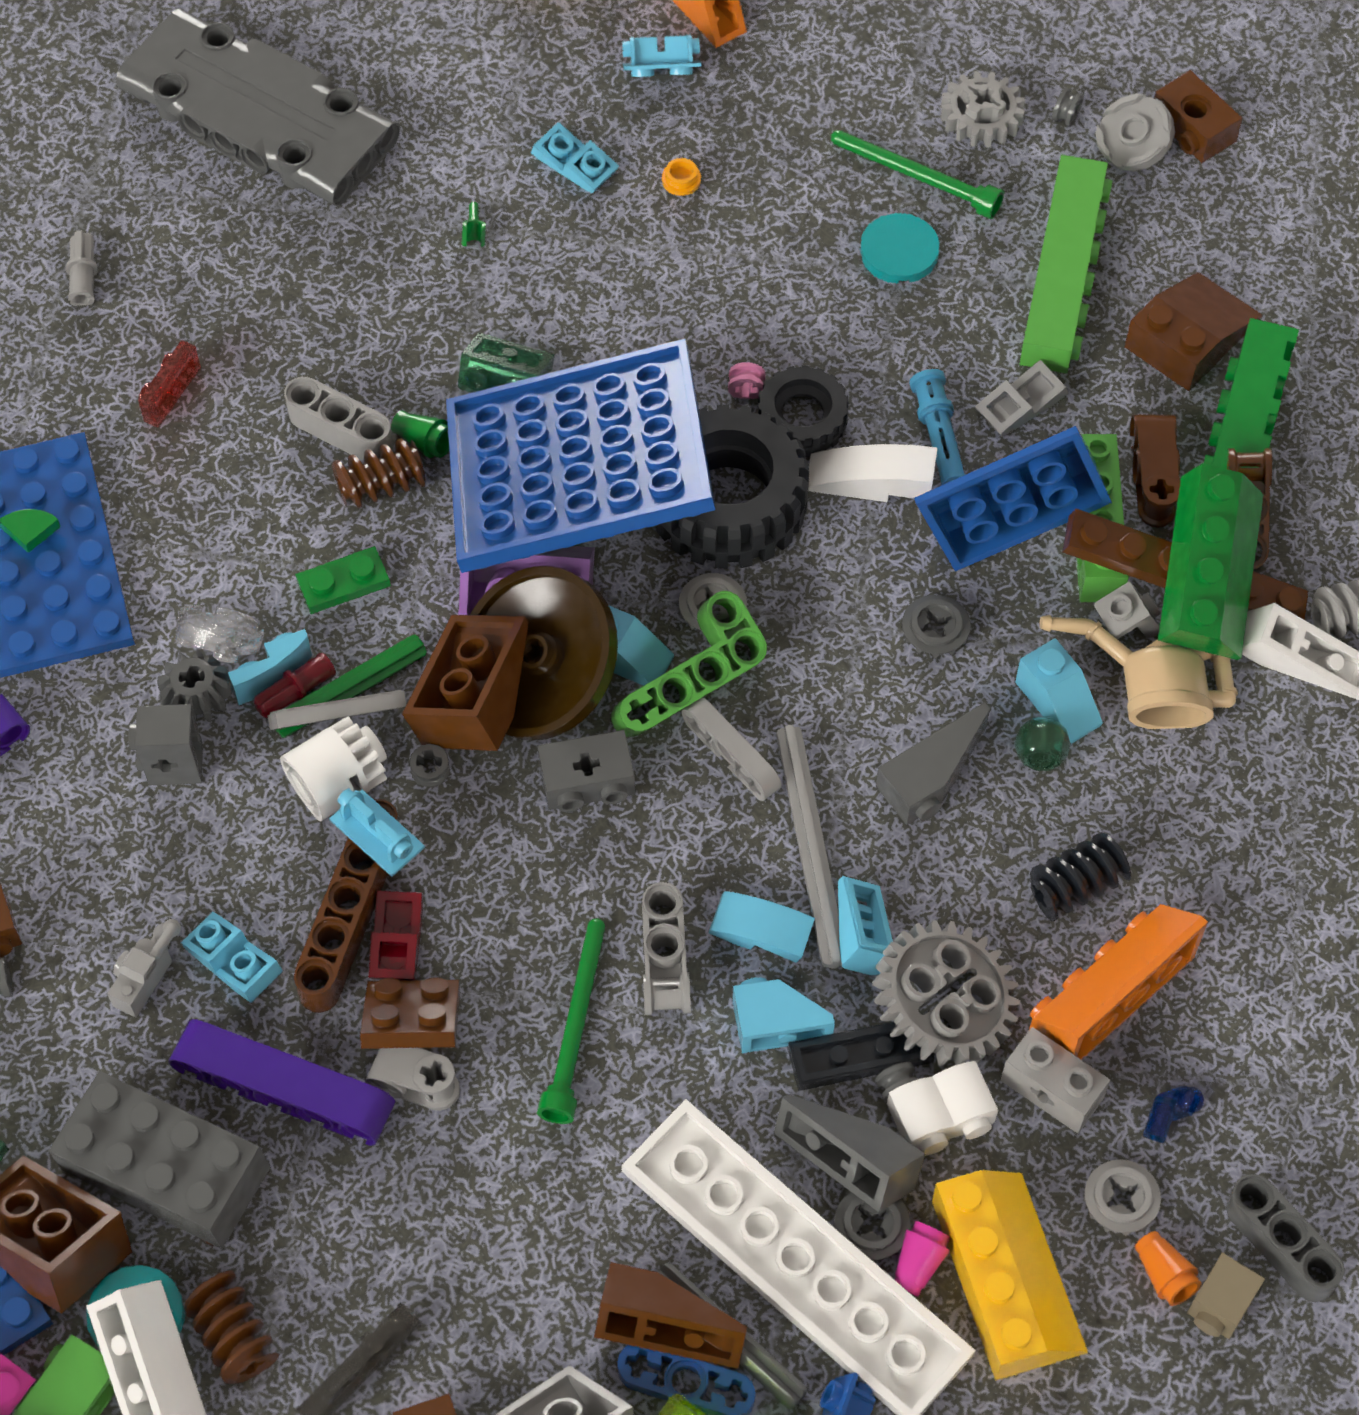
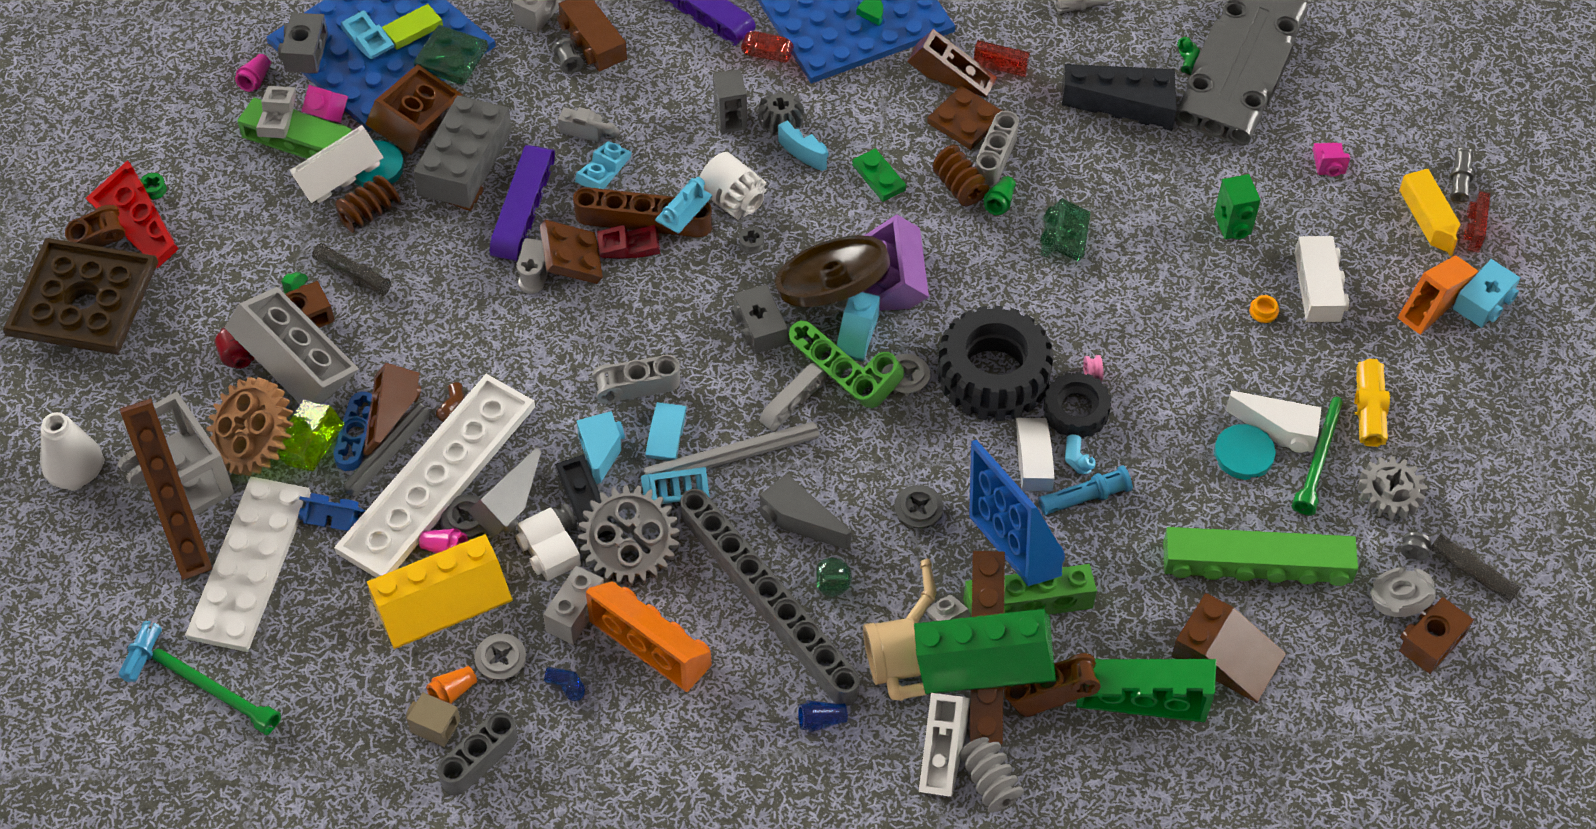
camera: 80 degrees right, 5 degrees down
(52, 686) = (767, 46): none -> clear red beam
(160, 452) = (948, 64): none -> reddish brown slope
(222, 162) = (1189, 52): none -> green arm
(224, 633) = (823, 124): clear plate -> none
(262, 452) = (964, 117): none -> reddish brown plate
(281, 243) = (1122, 92): none -> black wedge
(294, 685) = (793, 162): dark red axle -> none
(336, 709) = (774, 180): light grey tile -> none
(364, 676) = (801, 190): green axle -> none
(448, 52) = (1330, 159): none -> dark pink bracket
(470, 683) = (804, 241): reddish brown slope -> none
(473, 227) = (1178, 195): green hand -> none
(525, 158) = (1237, 206): none -> green brick
(558, 1101) = (529, 339): green piece -> none
(576, 456) = (982, 261): blue plate -> none
(578, 162) = (1261, 245): medium azure slope -> none
(646, 58) = (1371, 289): medium azure hinge -> none
(650, 105) = (1320, 279): none -> white brick
(661, 1223) = (456, 396): none -> reddish brown arm
(851, 99) = (1372, 403): none -> yellow piece
(868, 194) = (1285, 422): none -> white slope
(882, 432) = (1080, 463): none -> medium azure arm
(1022, 400) = (1127, 543): light grey slope -> none
(1058, 689) = (877, 583): medium azure slope -> none
(1072, 811) = (773, 608): none -> dark grey beam
(1076, 872) = (728, 606): black piece -> none
(1093, 66) = (1471, 565): none -> clear smoke pin
(1155, 467) = (1092, 631): reddish brown piece -> none
(1252, 796) = (820, 715): none -> clear blue cone

